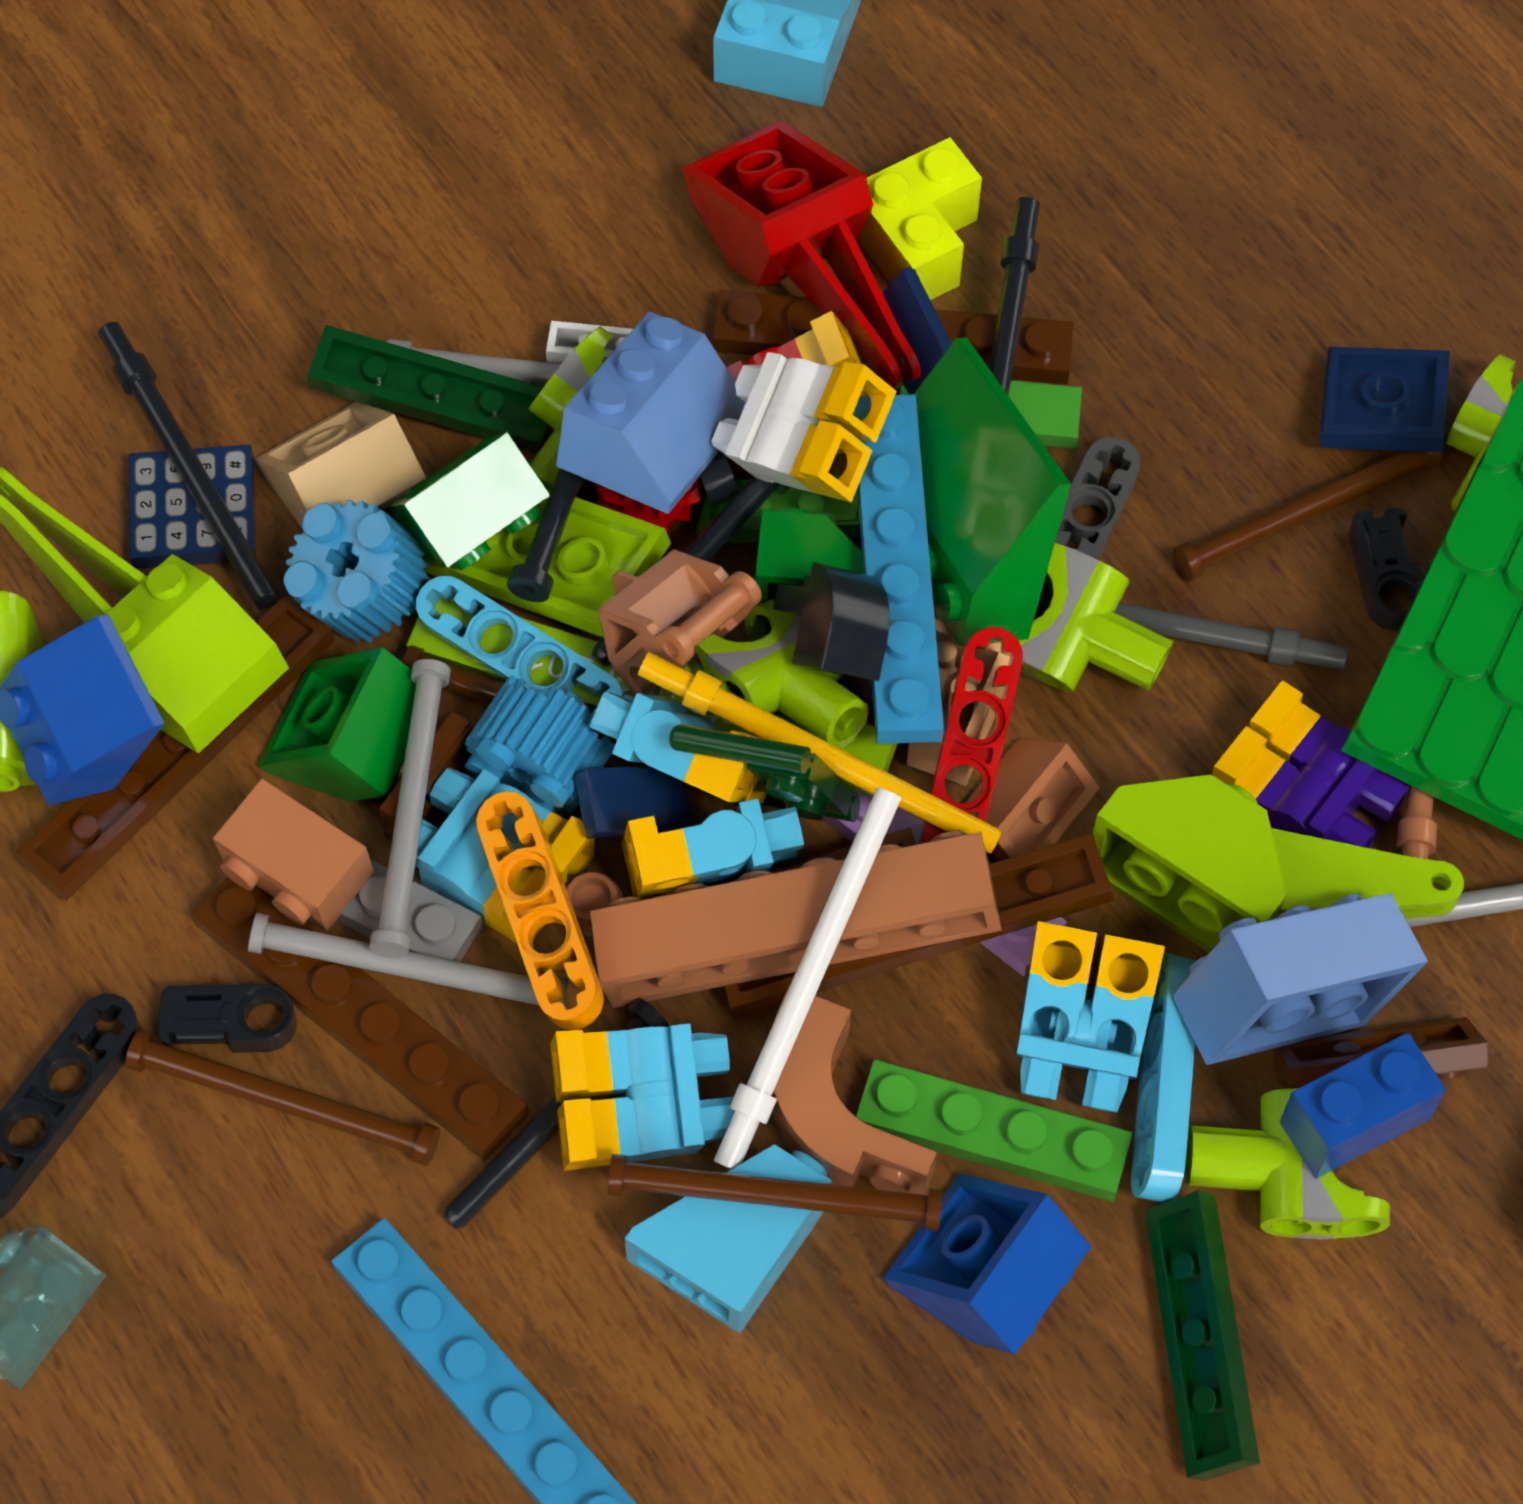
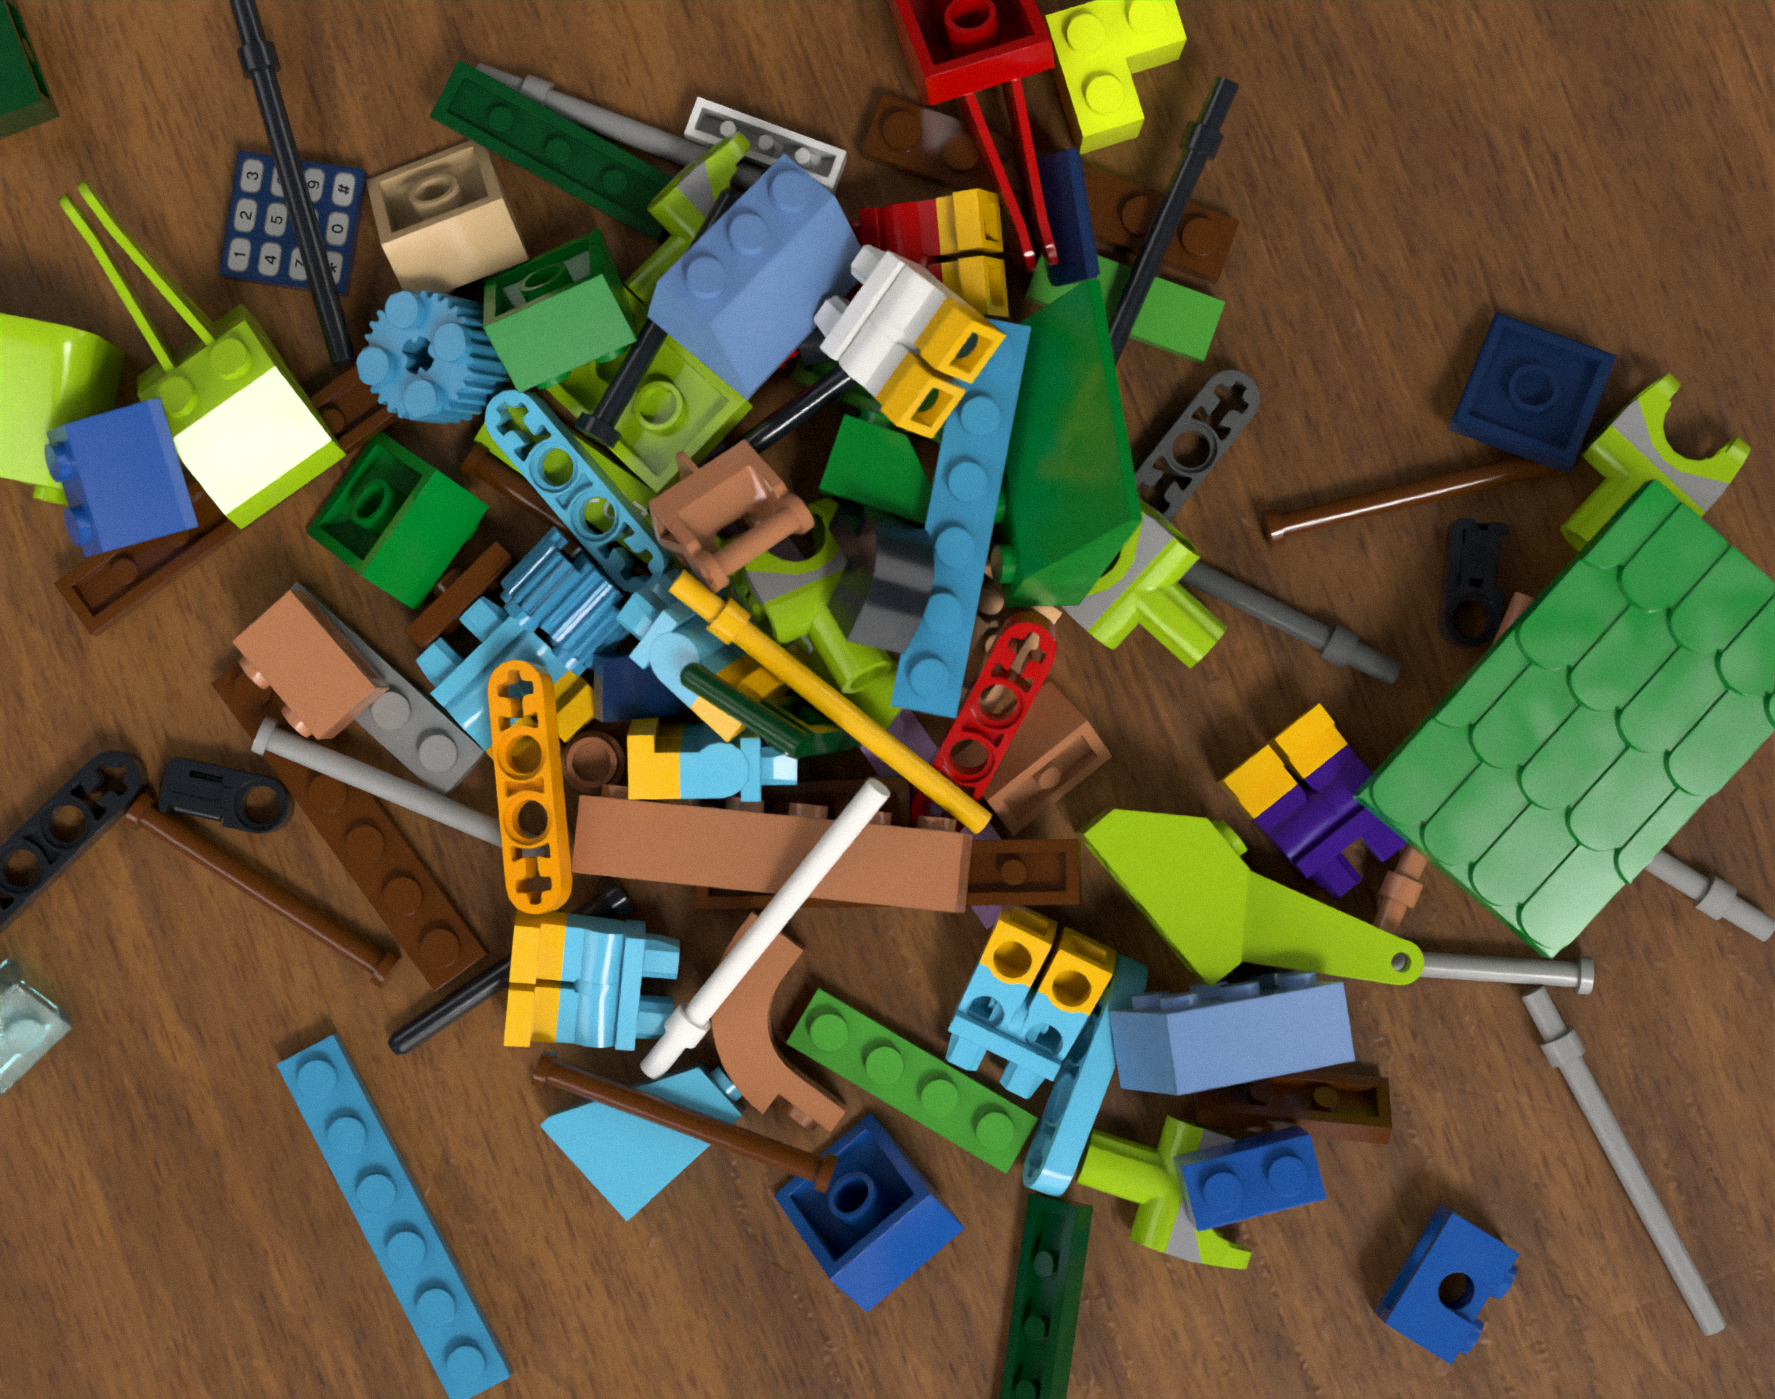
camera: 15 degrees right, 25 degrees up
(390, 937) = (432, 641): light grey bar -> none

